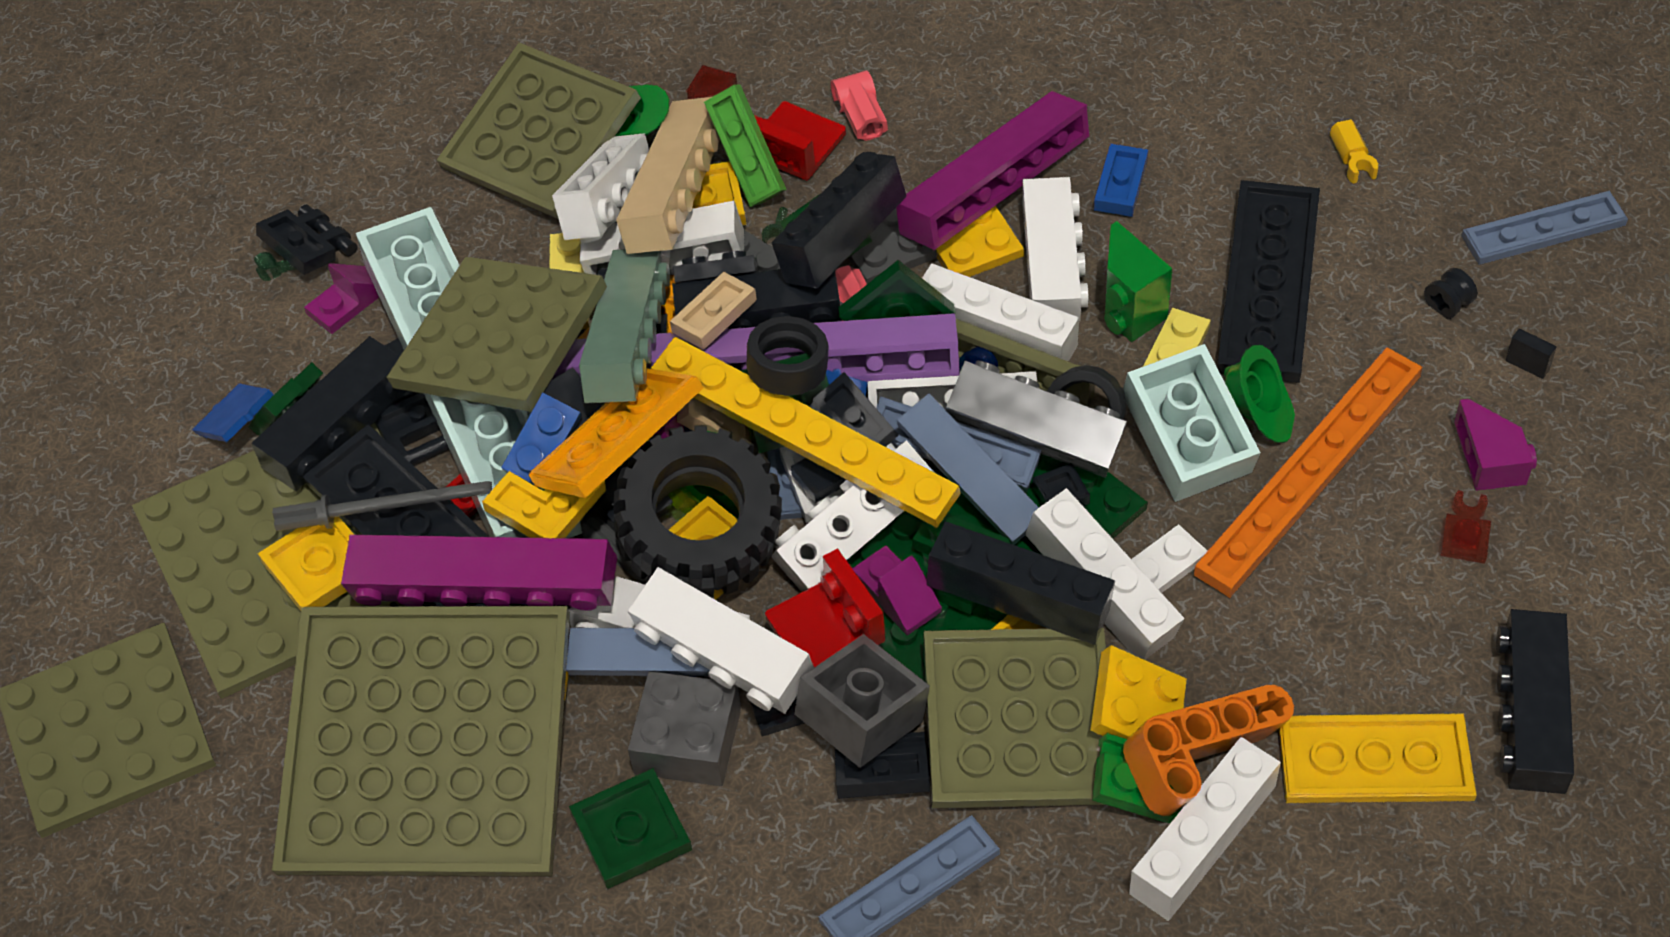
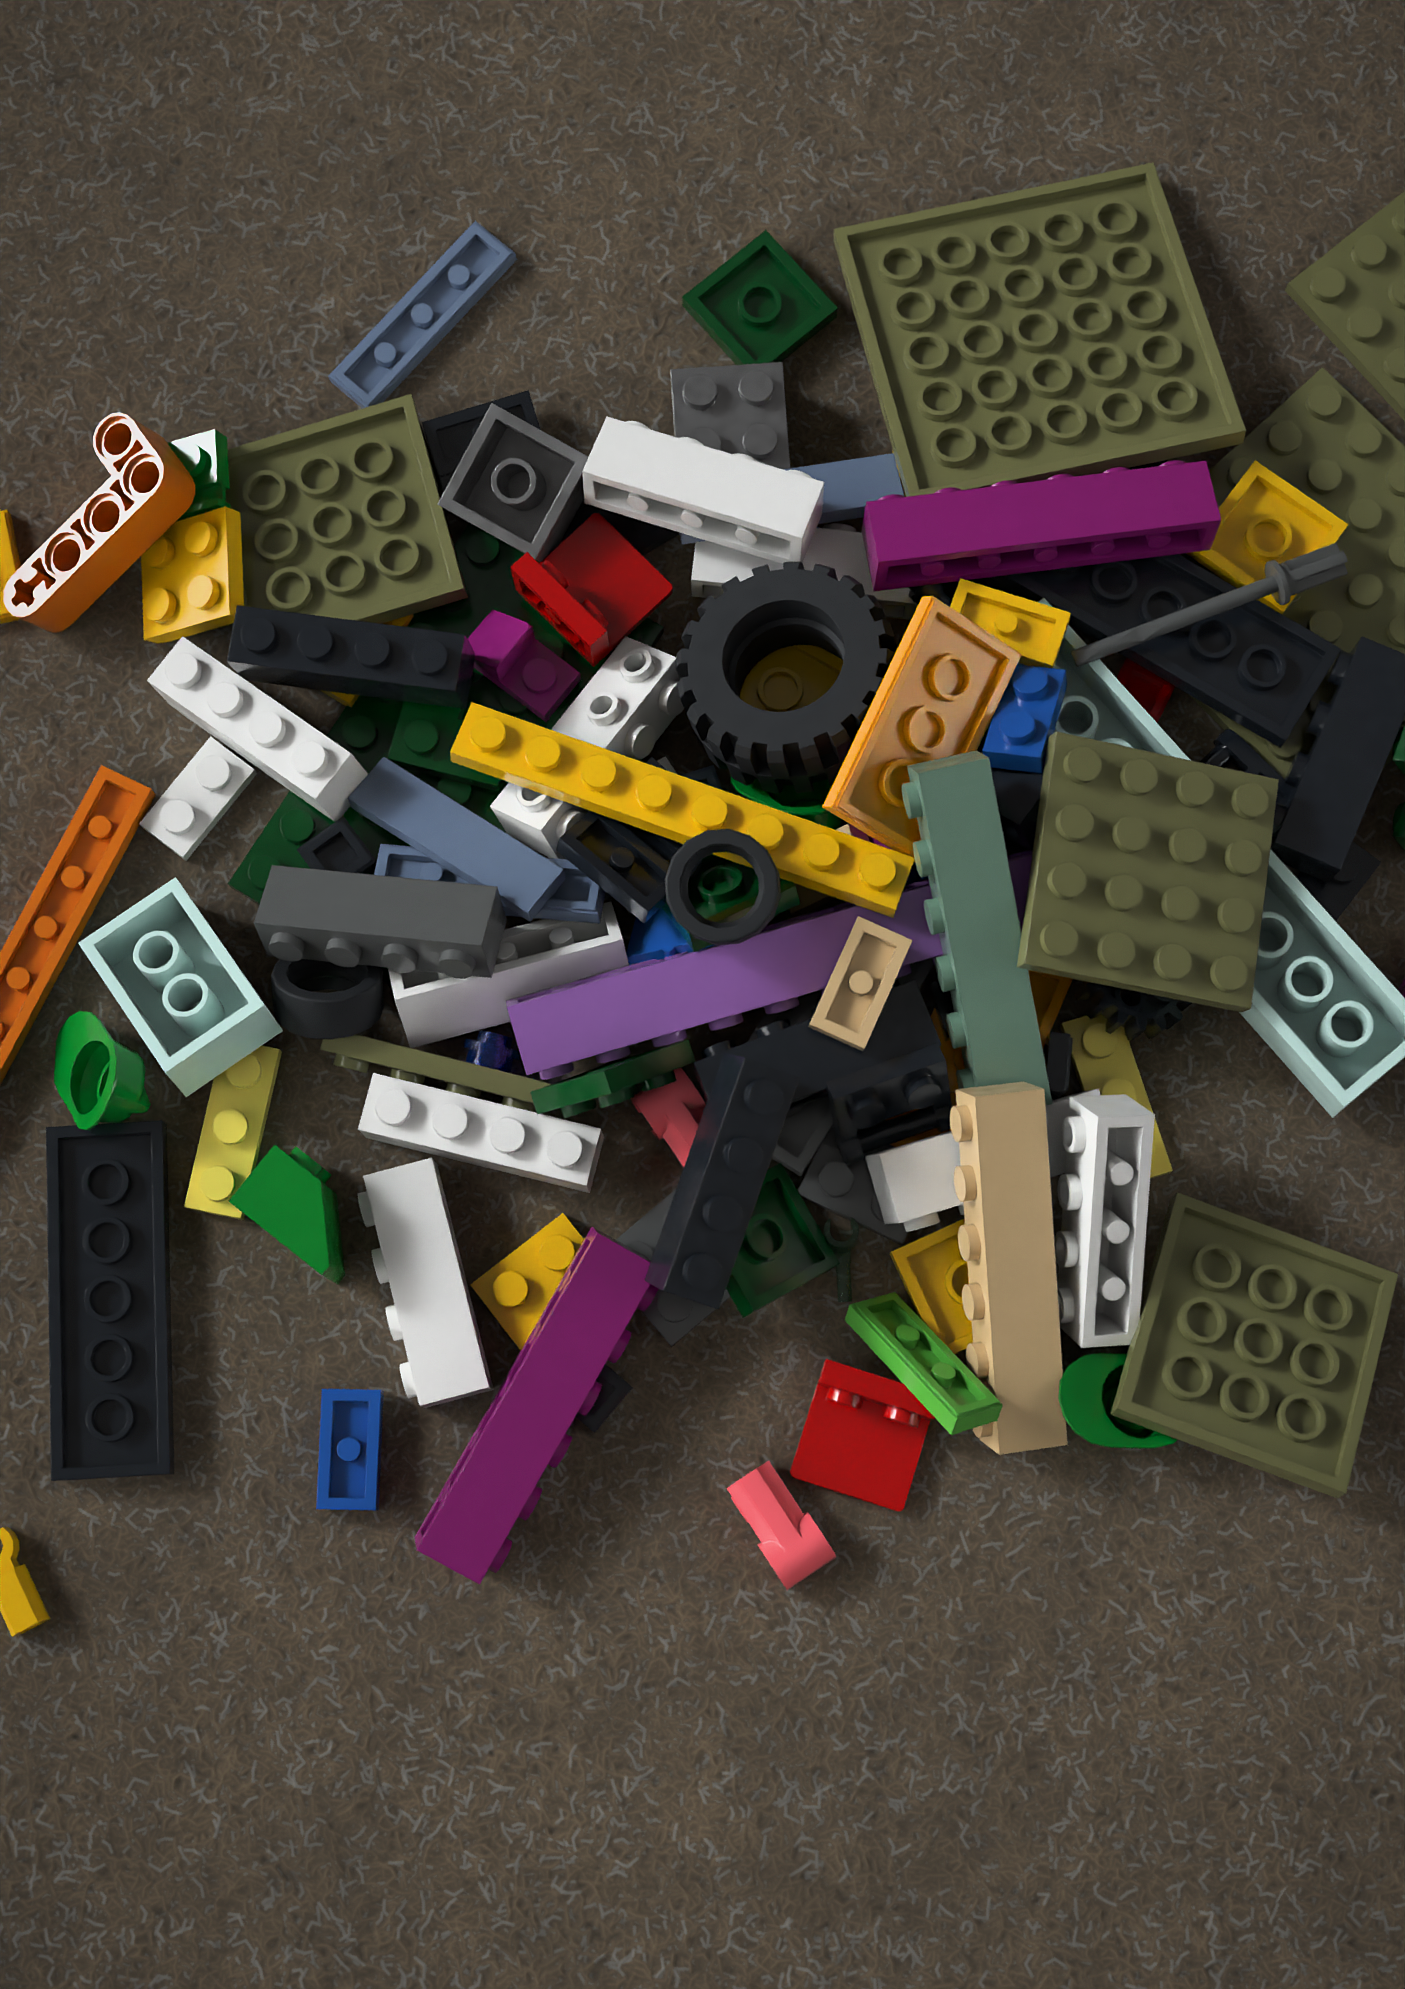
camera: 165 degrees right, 25 degrees up
(710, 82) = (1022, 1512): clear red plate -> none
(1204, 828) = (120, 378): white brick -> none

